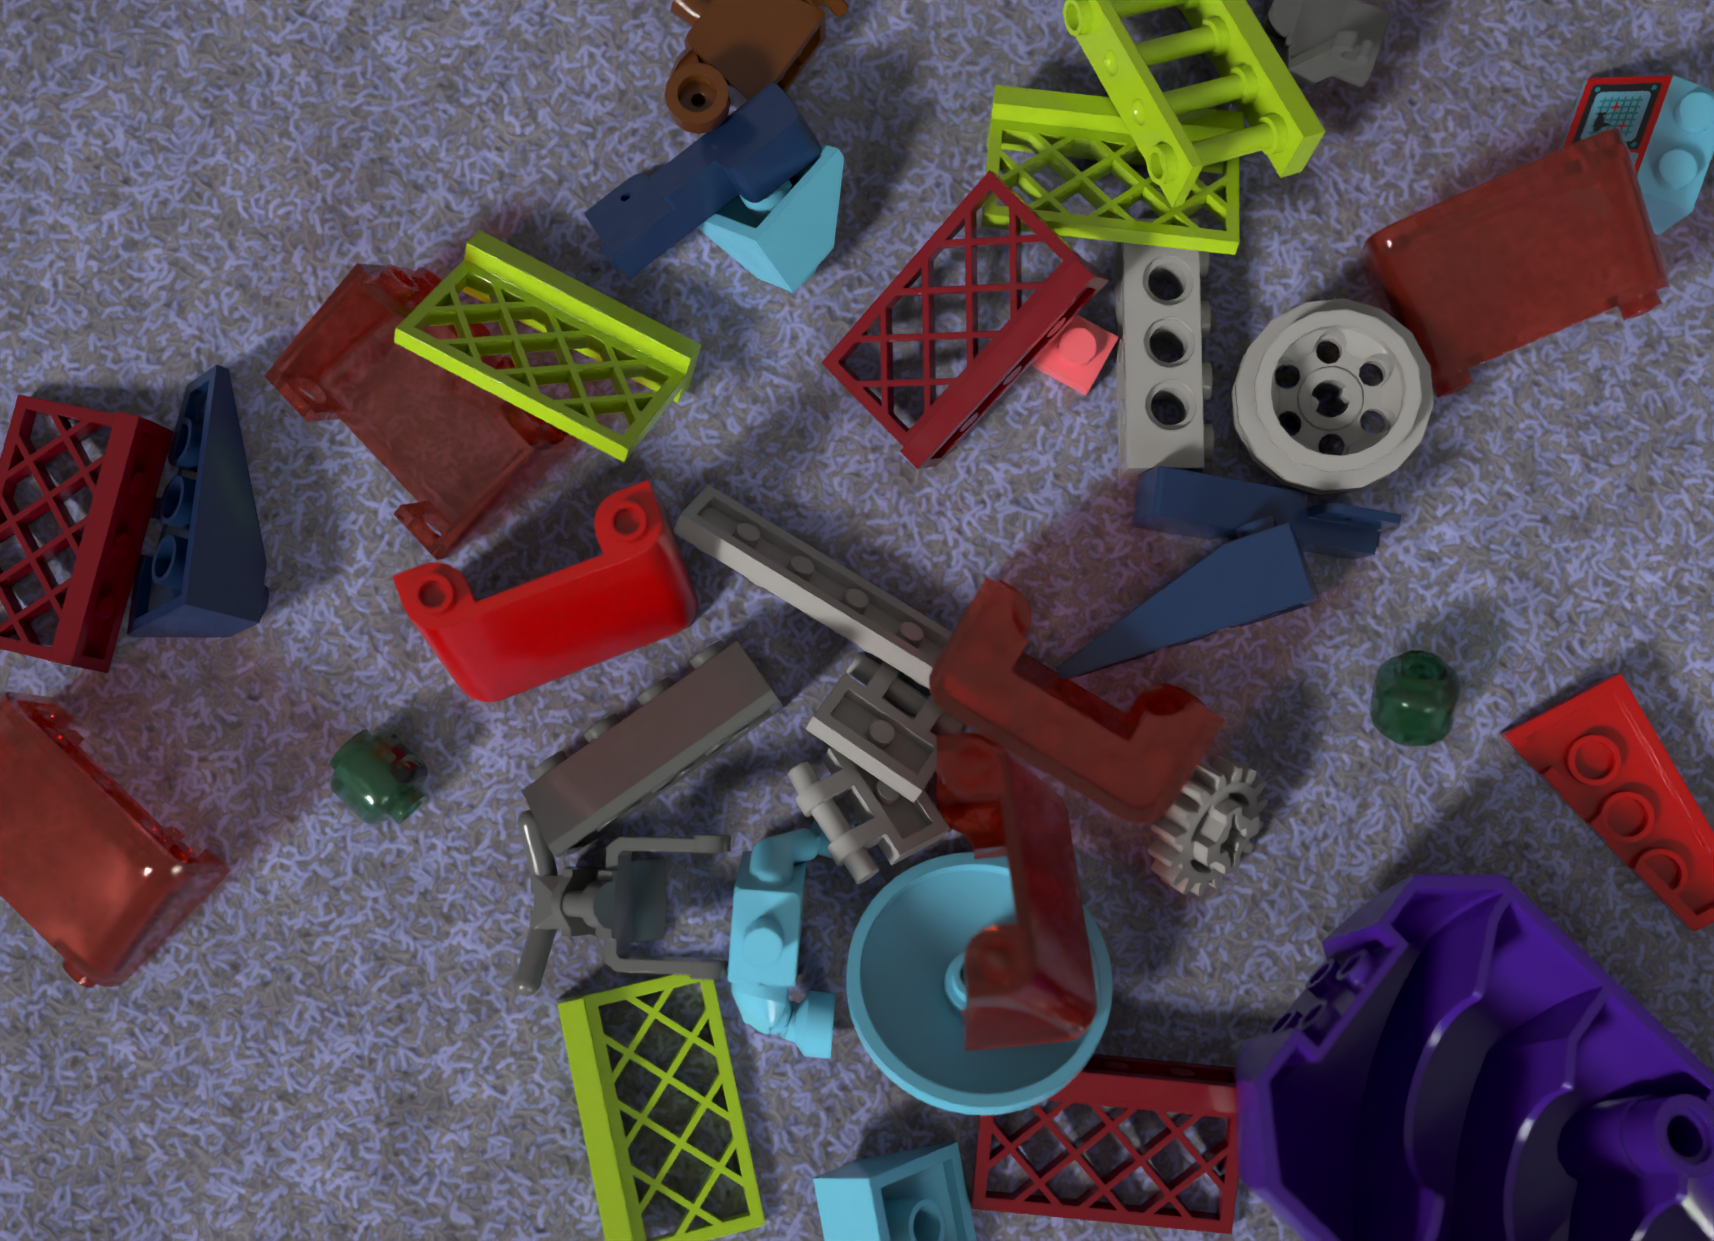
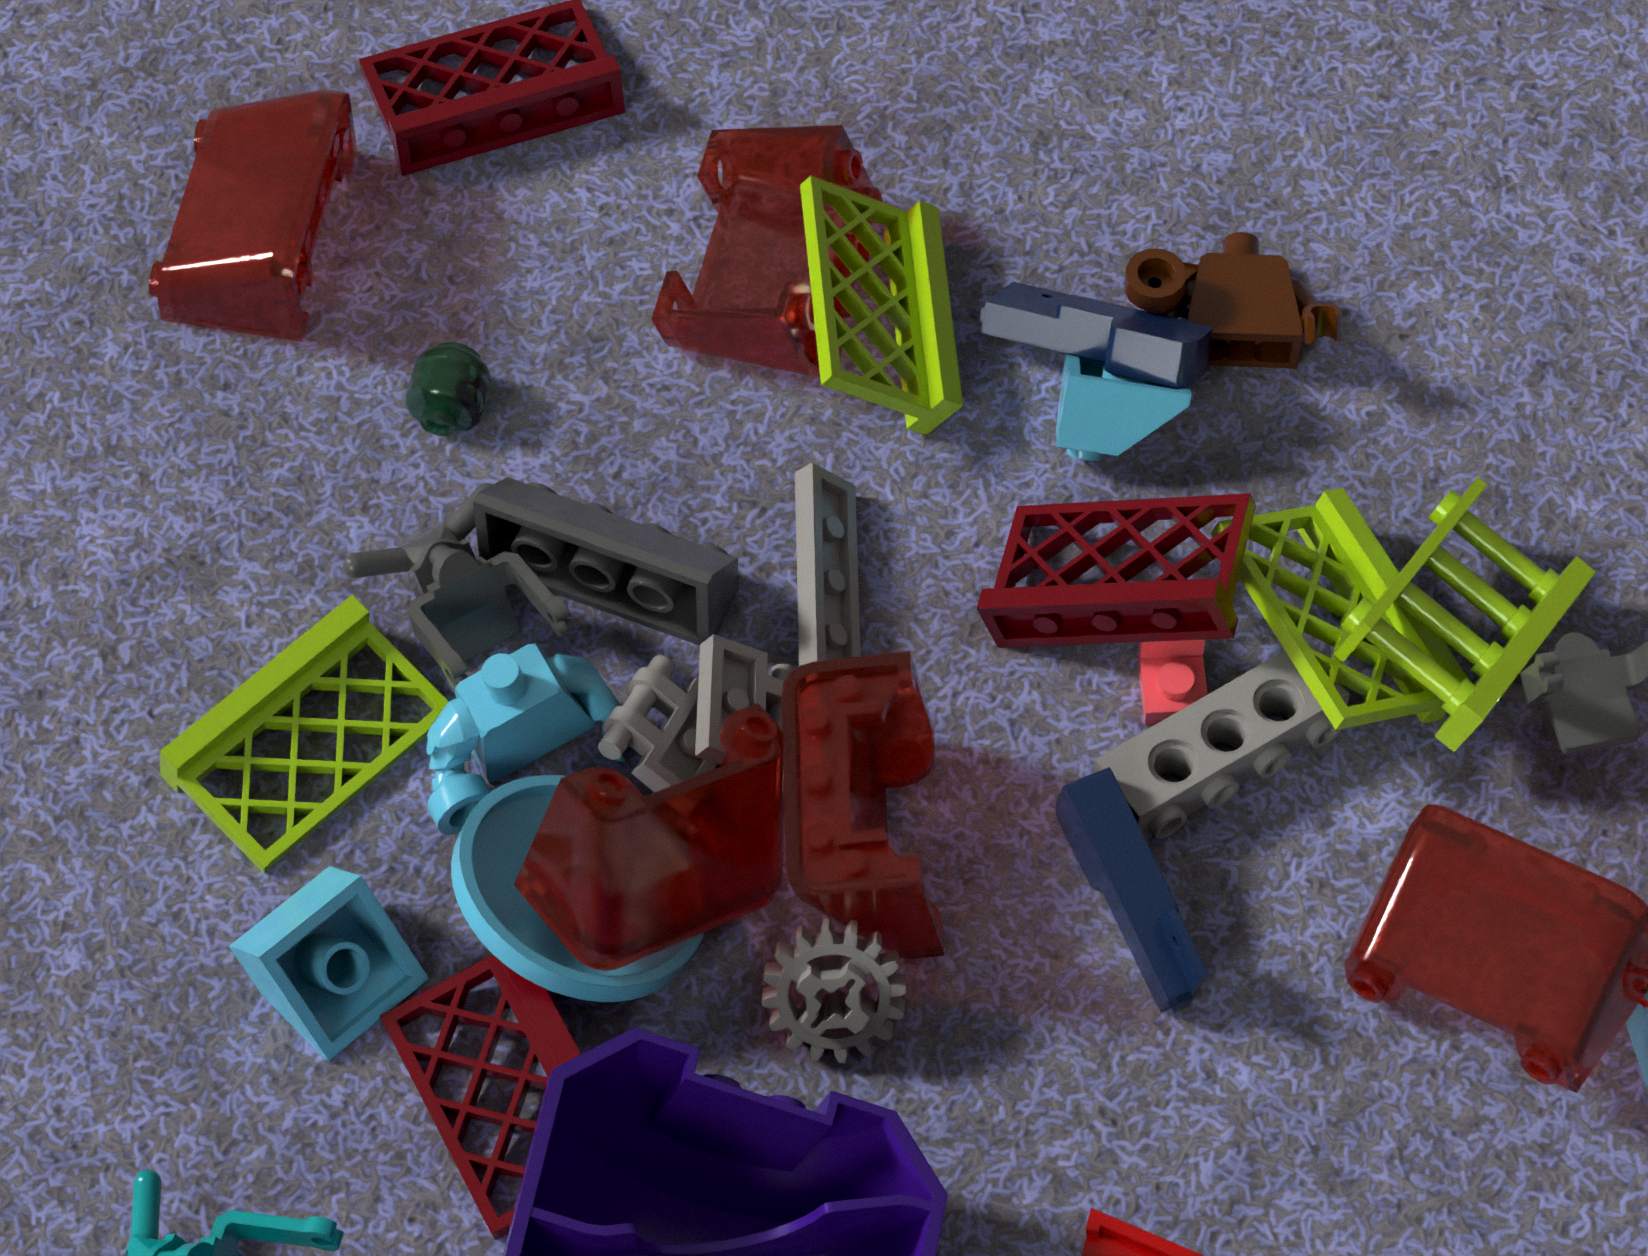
camera: 60 degrees right, 25 degrees down
(211, 546) = (532, 186): dark blue wedge -> none
(564, 619) = (676, 432): red windscreen -> none
(1230, 588) = (1040, 880): dark blue wedge -> none
(1363, 337) = (1261, 911): light grey wheel -> none
(1415, 698) = (1065, 1102): clear green head -> none

